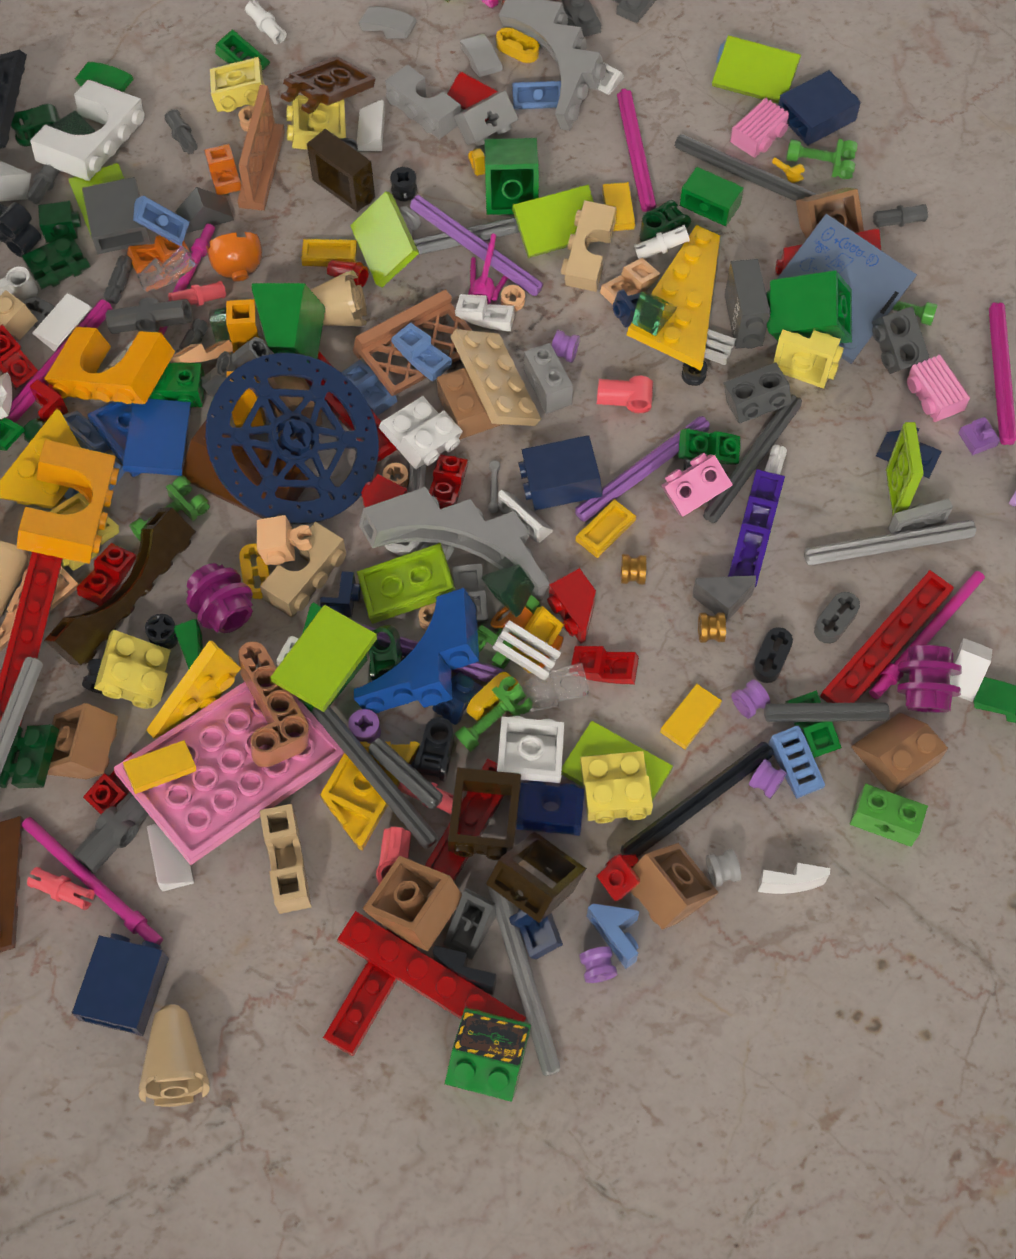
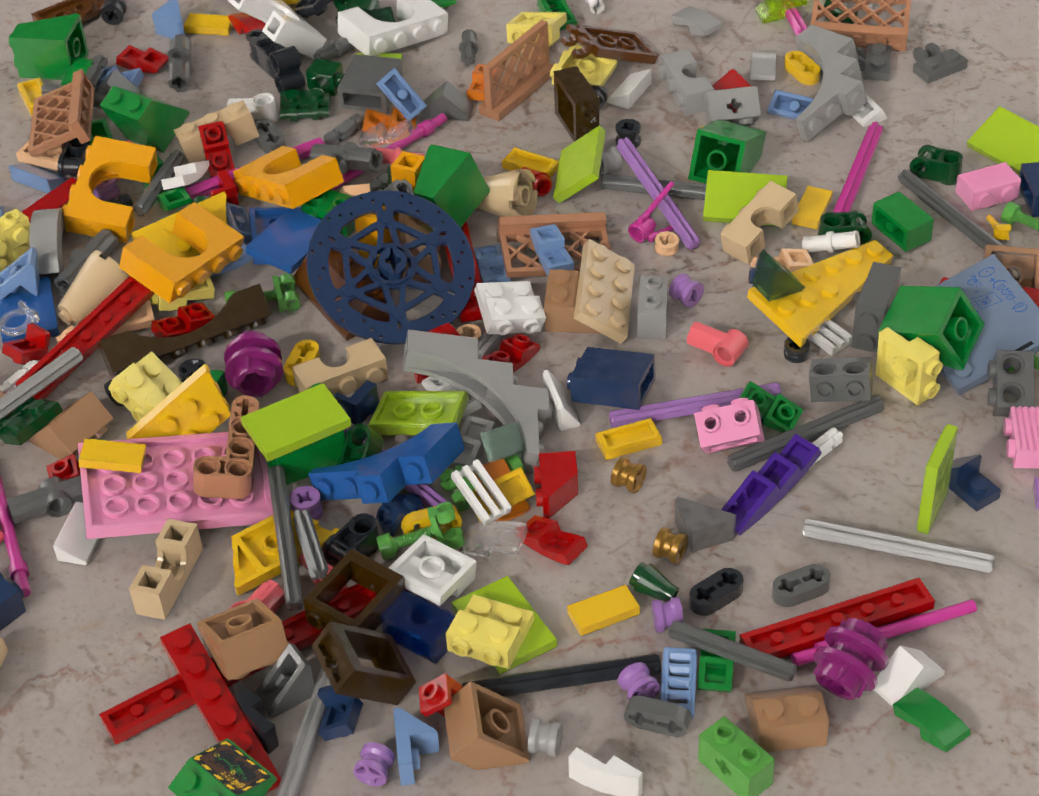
camera: 30 degrees right, 20 degrees down
(61, 321) = (285, 135): white slope -> none
(234, 255) = (447, 132): orange cylinder -> none
(278, 540) = (331, 339): light nougat brick -> none
(477, 311) = (628, 243): white slope -> none
(494, 467) = (561, 360): light grey hinge -> none
(706, 118) = (940, 164): none -> dark green piece
(719, 672) = (652, 582): none -> dark green cone
(800, 802) = (657, 716): none -> dark grey beam
(921, 516) = (941, 531): light grey plate -> none

